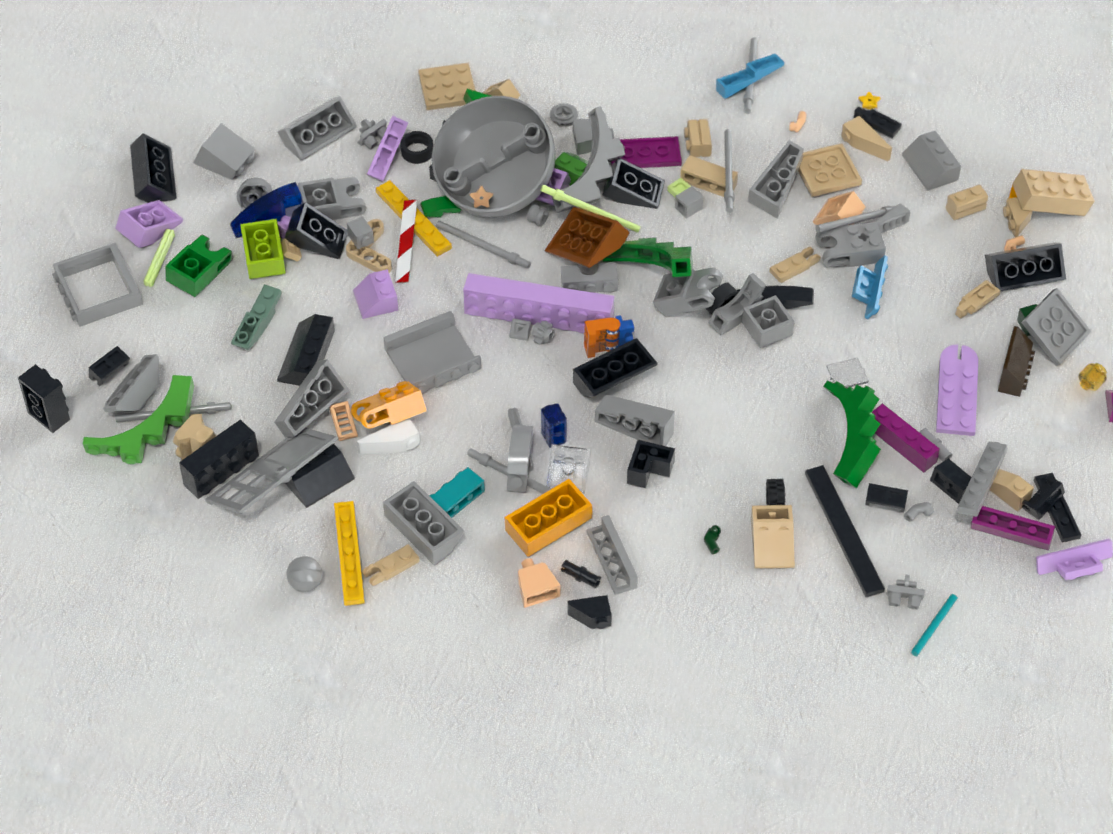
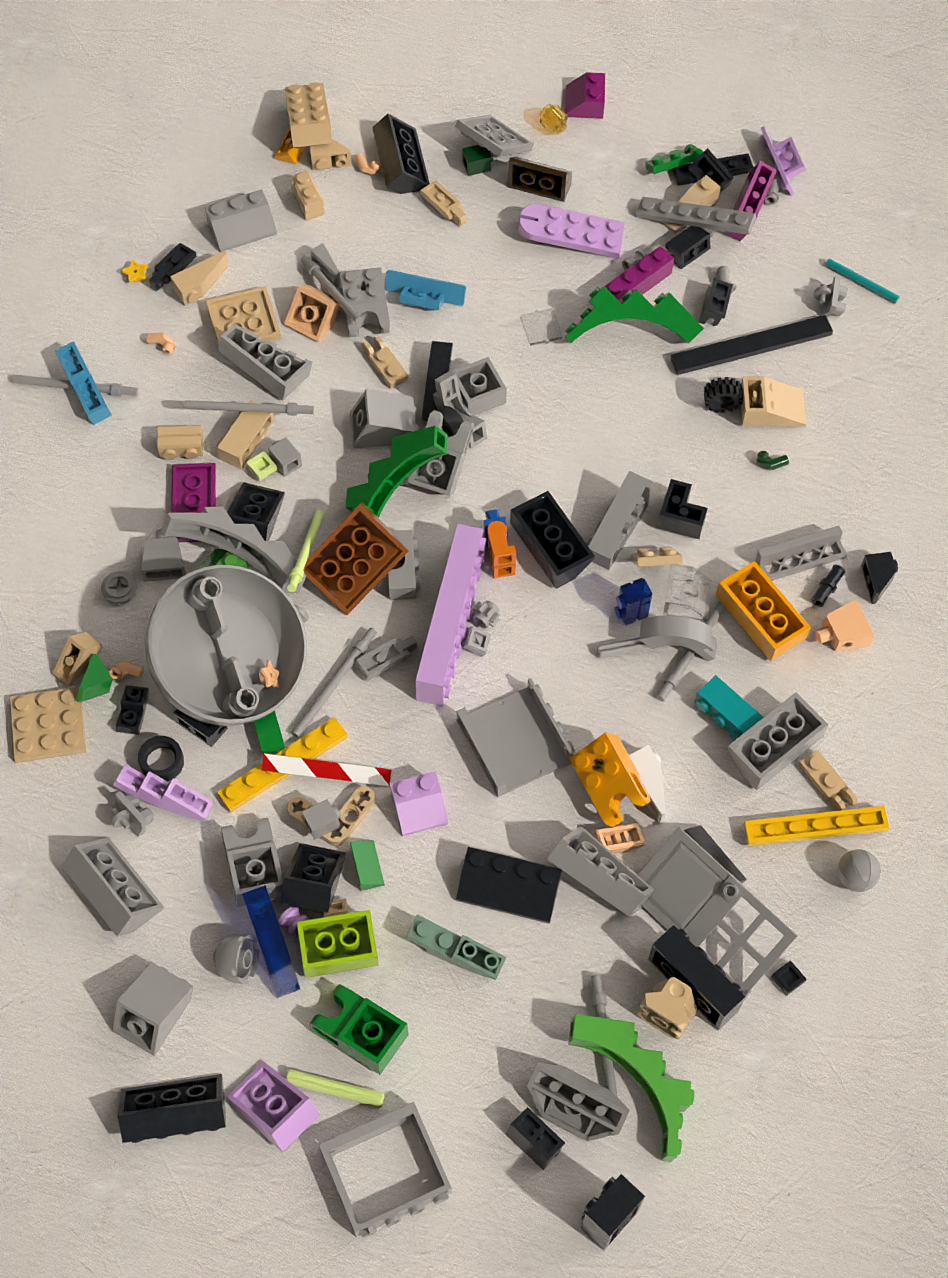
camera: 90 degrees left, 10 degrees up
(221, 530) = (788, 978): none -> black tile
(328, 267) = (367, 864): none -> slope
(501, 268) = (385, 657): none -> light grey hinge
(598, 442) = (664, 556): none -> tan plate
(730, 257) = (380, 417): none -> light grey slope
(1032, 551) = (772, 195): none -> light grey pin
(1059, 471) = (673, 159): none -> green plate

